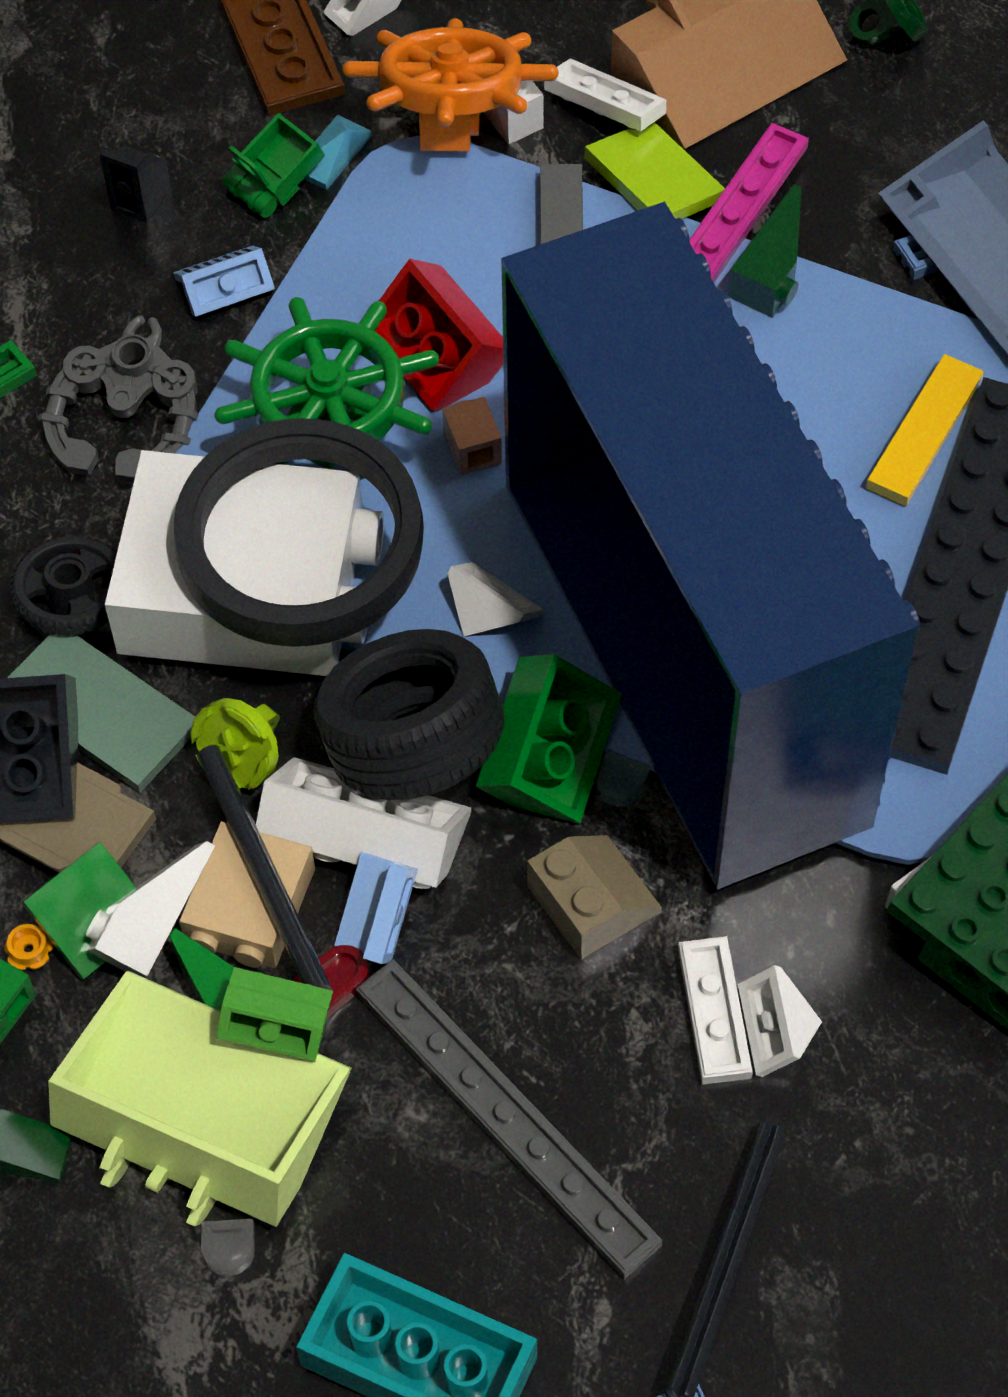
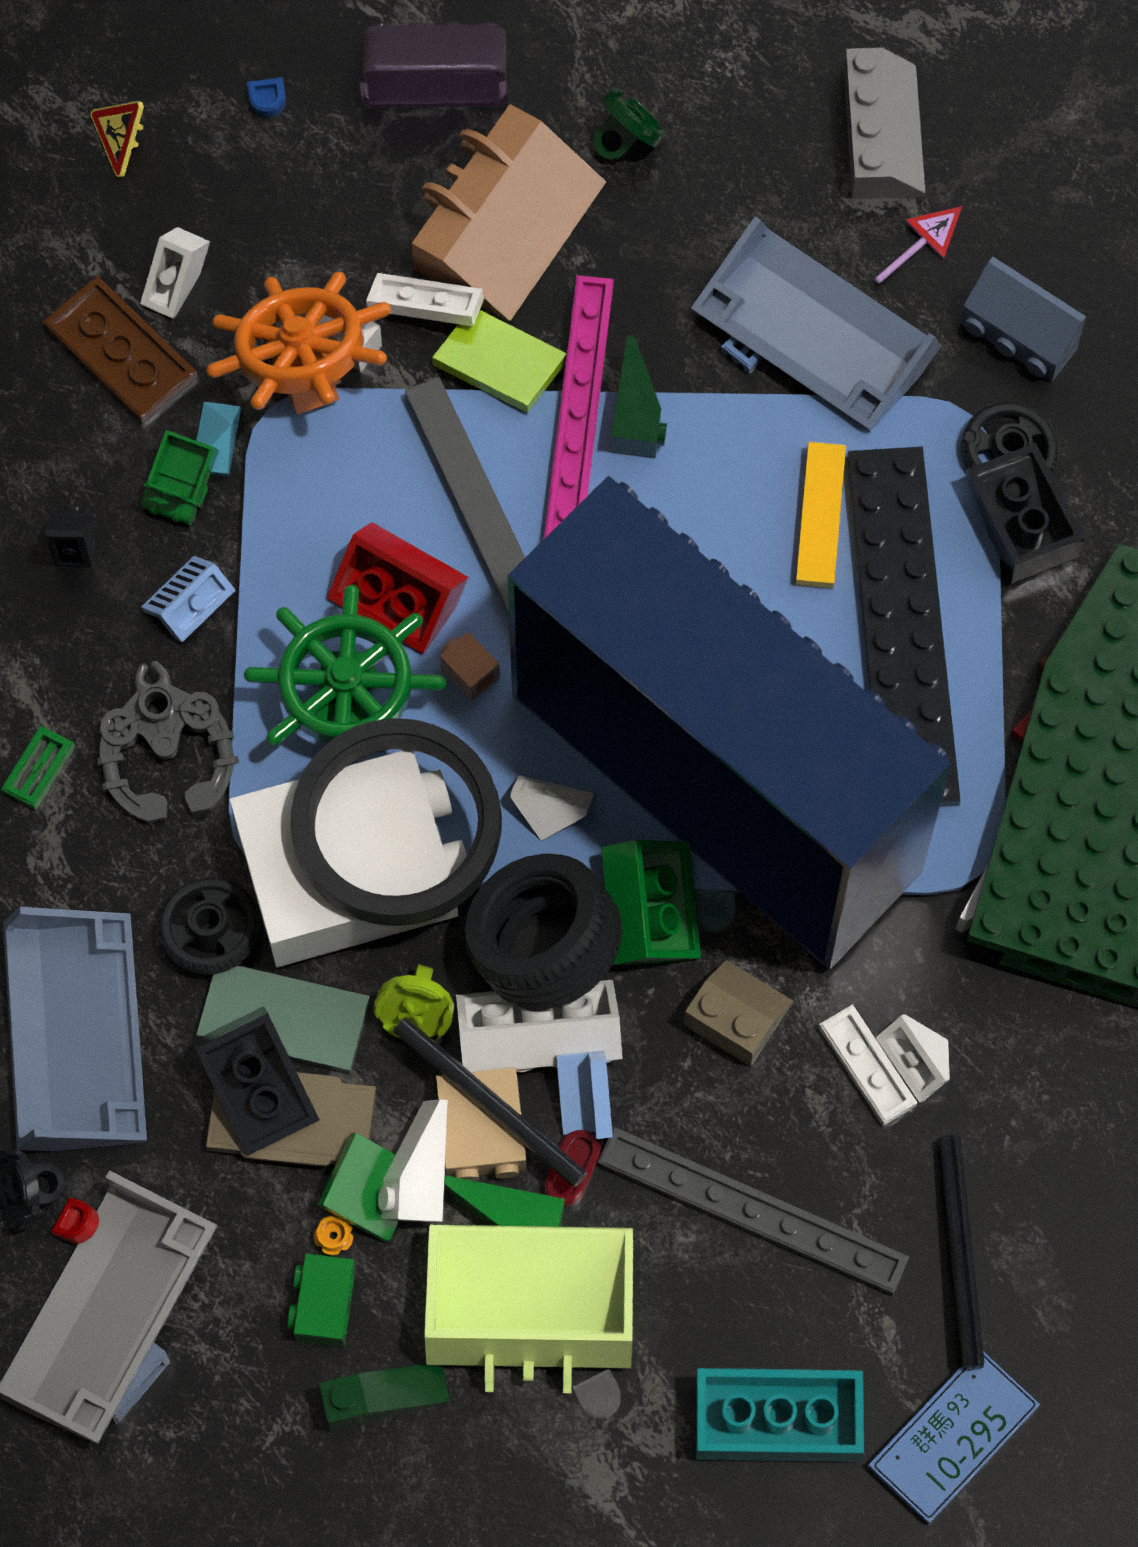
camera: 25 degrees left, 10 degrees up
(274, 1014) = (562, 1213): bright green brick -> none

